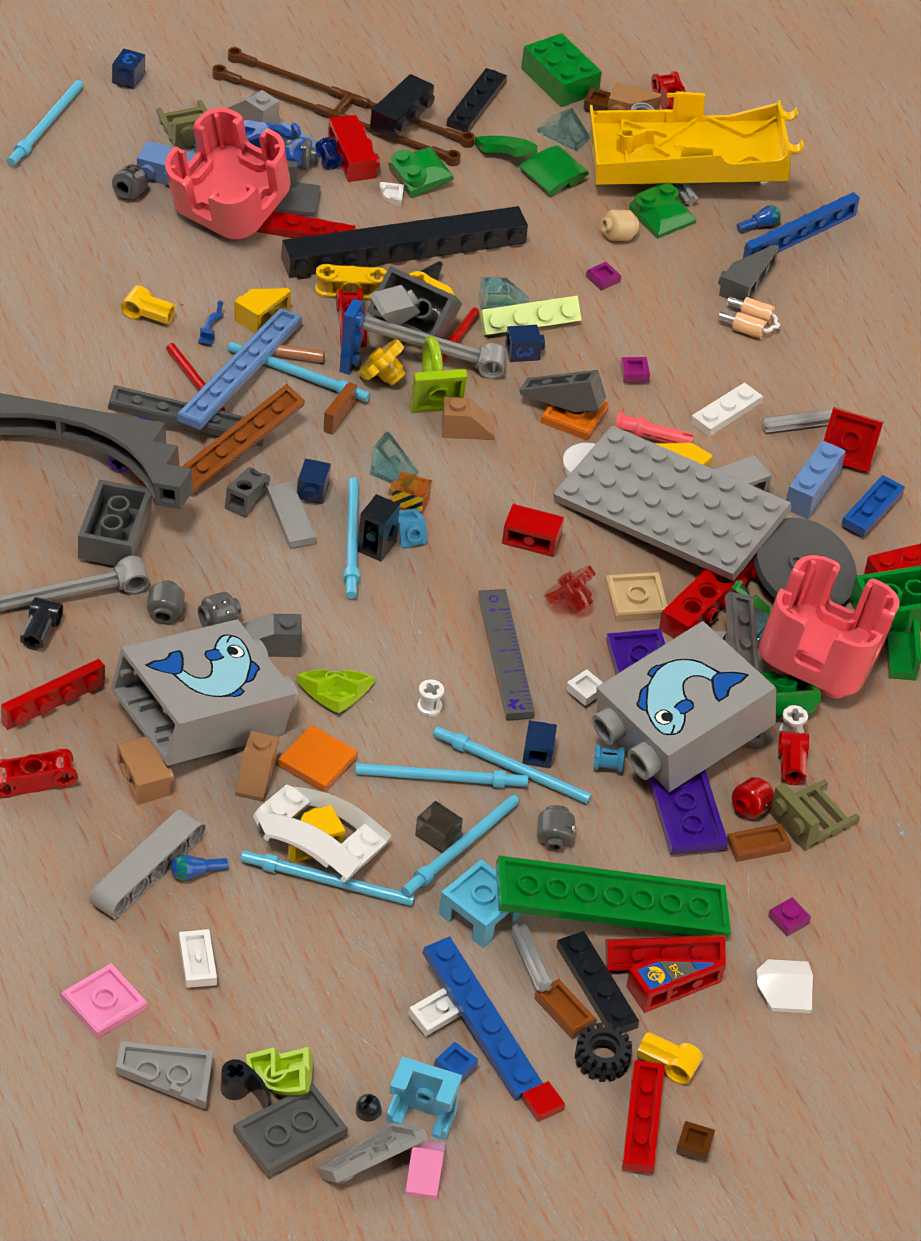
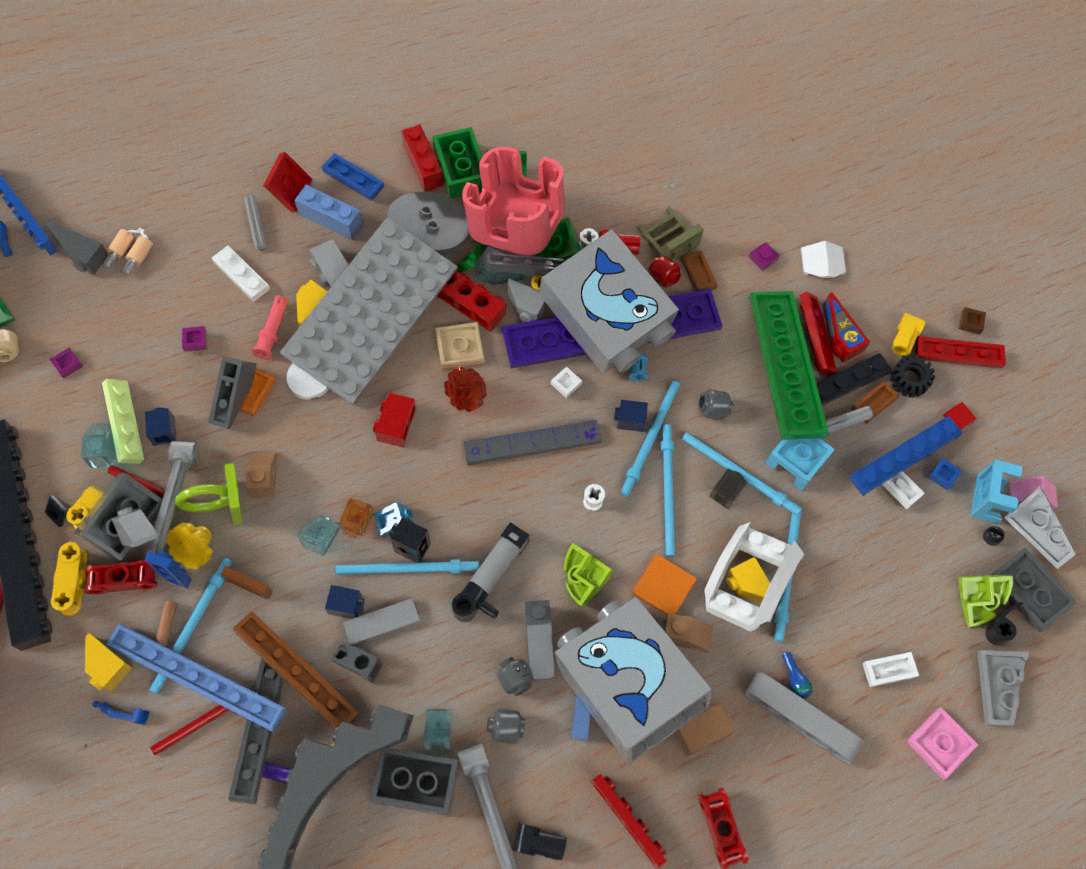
camera: 90 degrees left, 20 degrees up
(141, 302) = (93, 784): yellow piece -> none
(167, 549) = (438, 729): none -> clear light blue slope
(305, 581) = (511, 544): none -> piece

